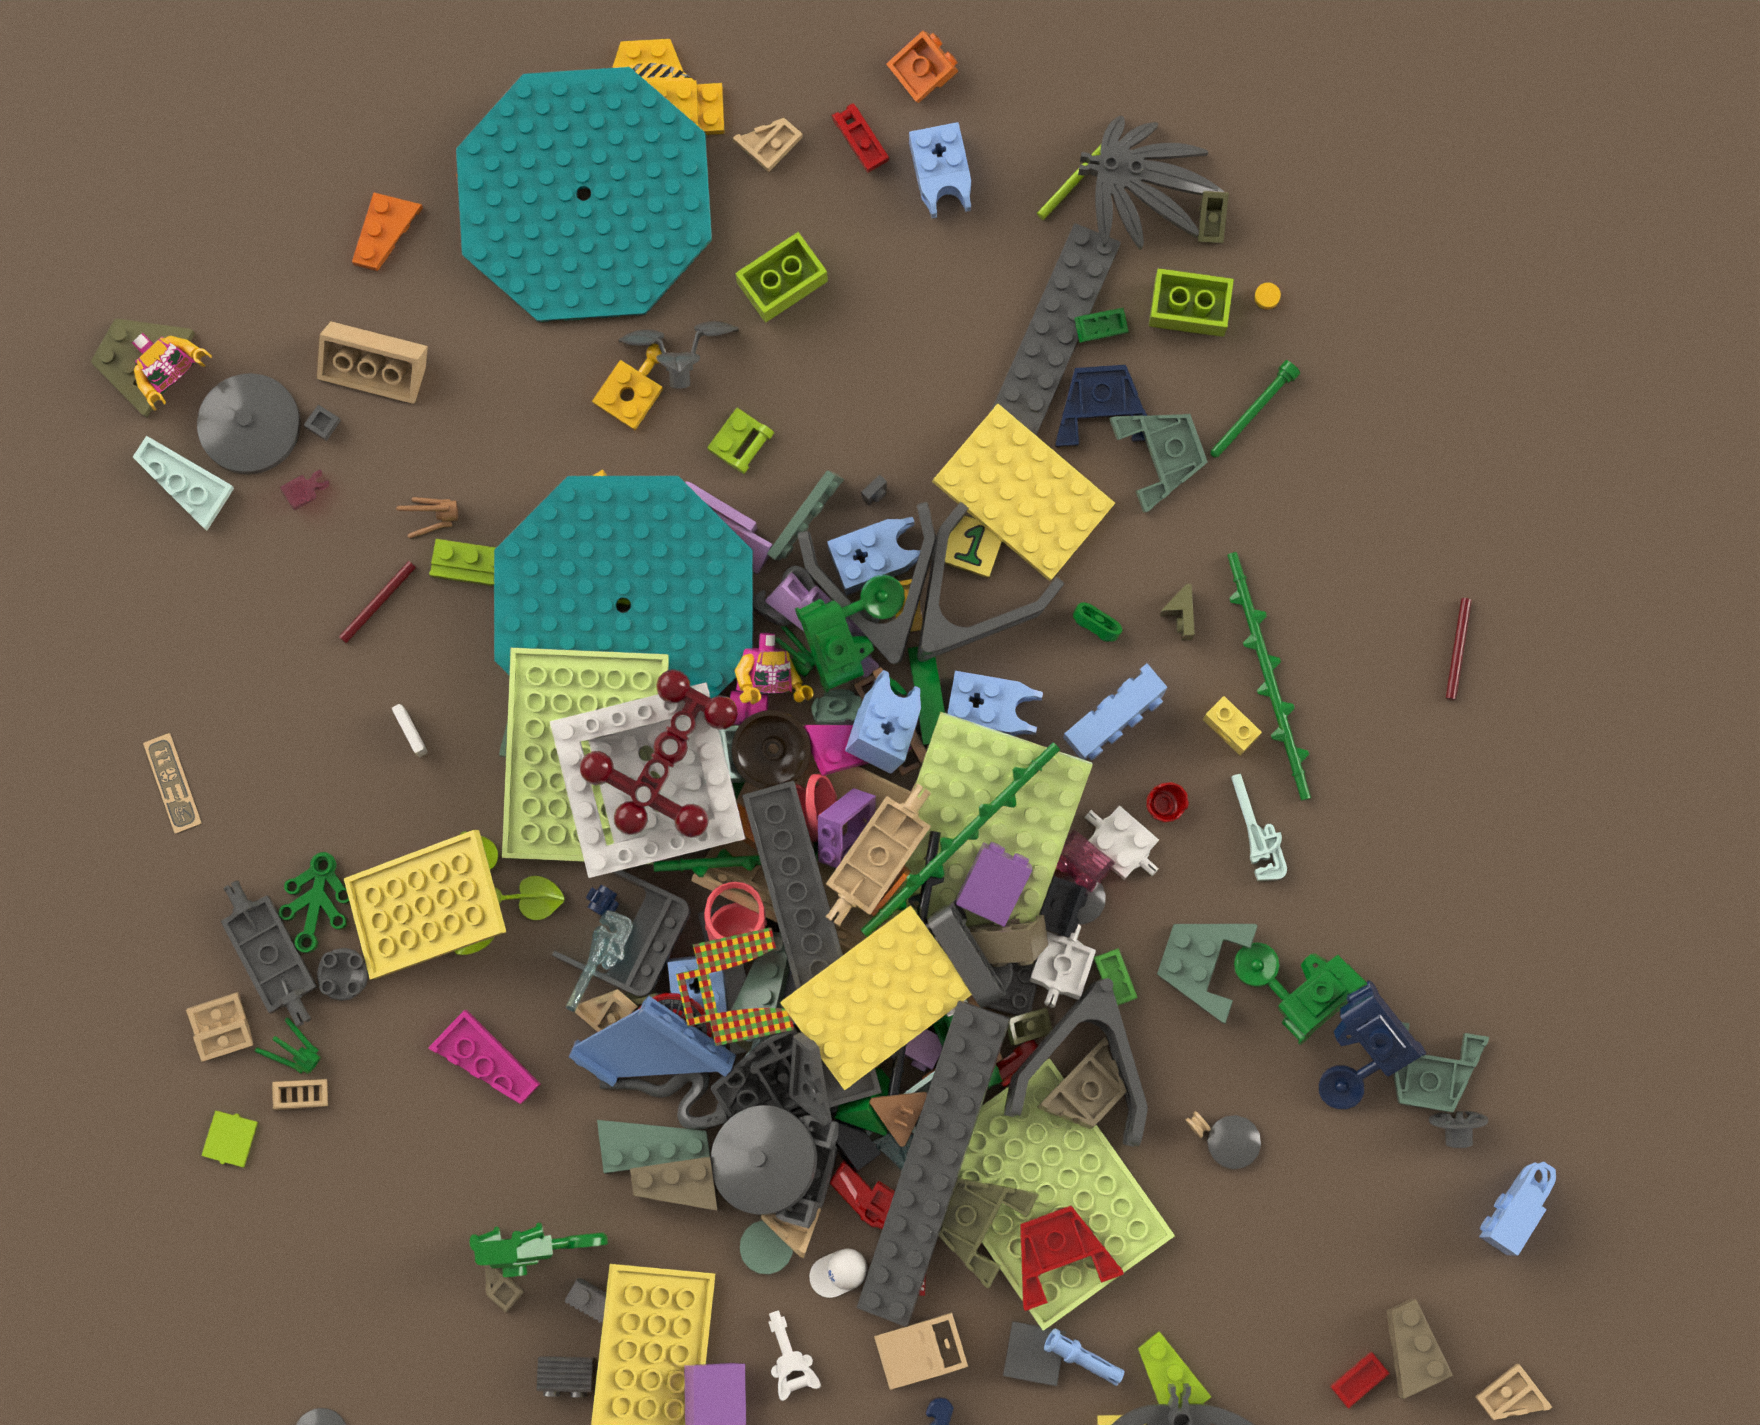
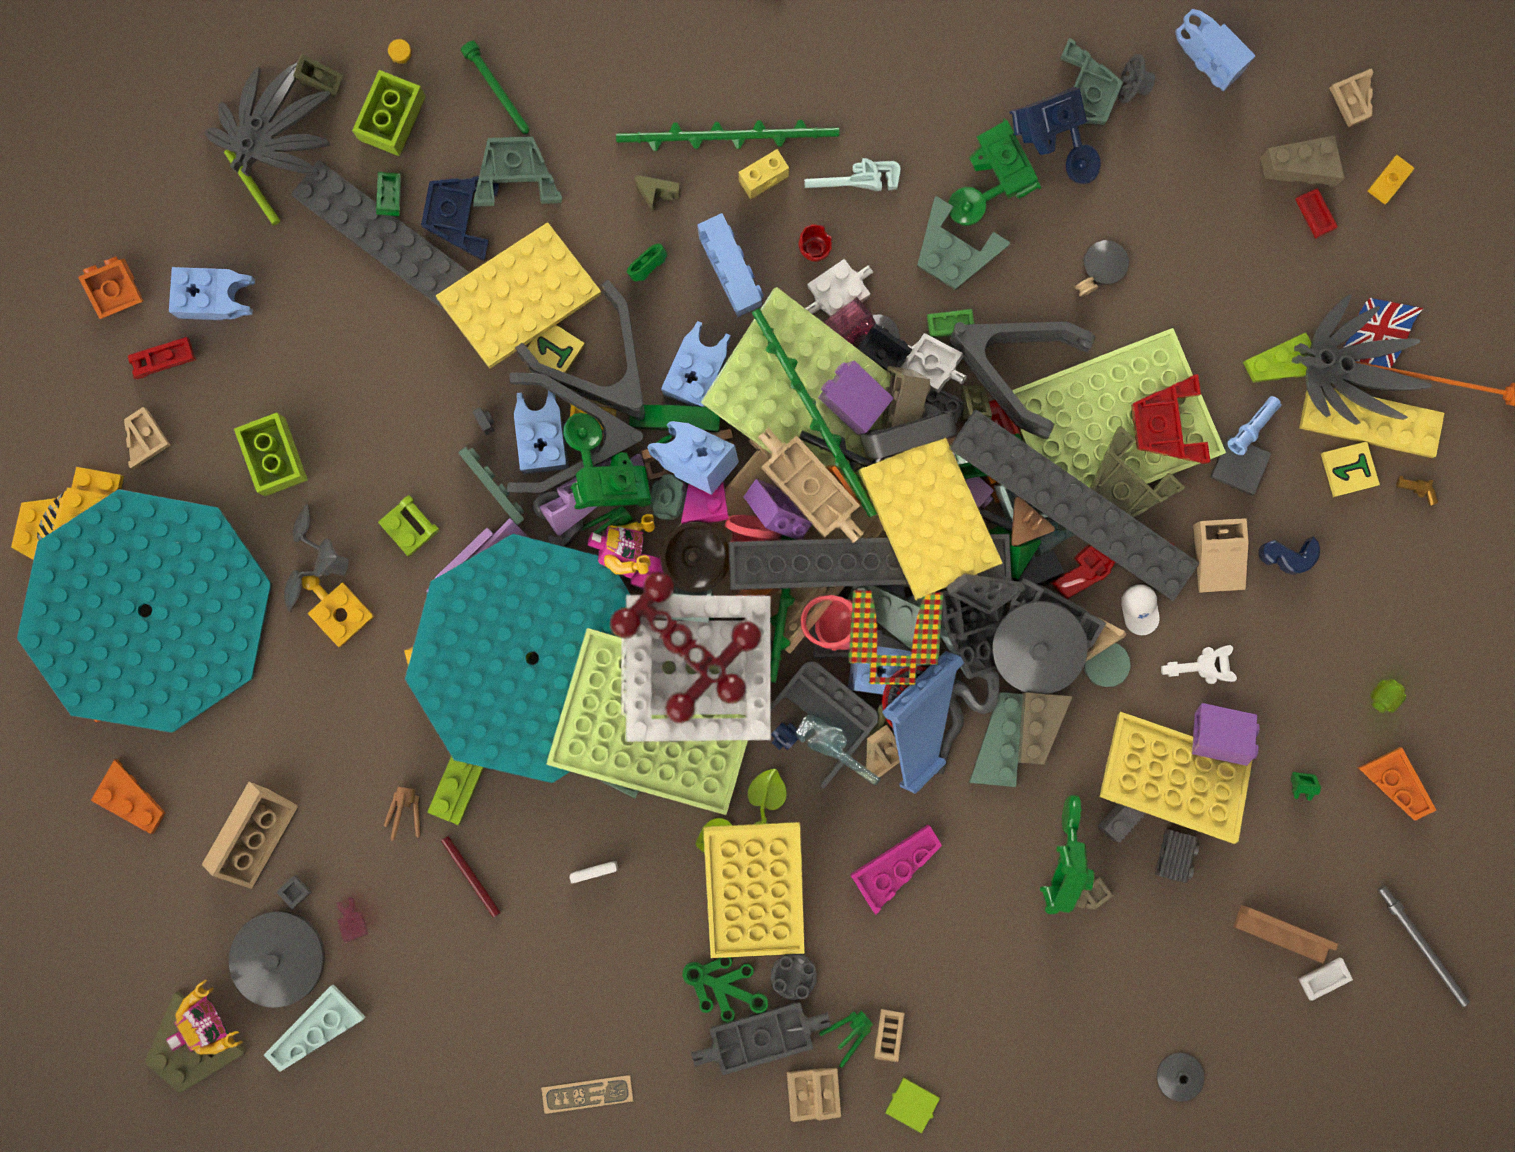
camera: 80 degrees left, 5 degrees up
(1087, 1090) = (1039, 367): dark tan wing -> none

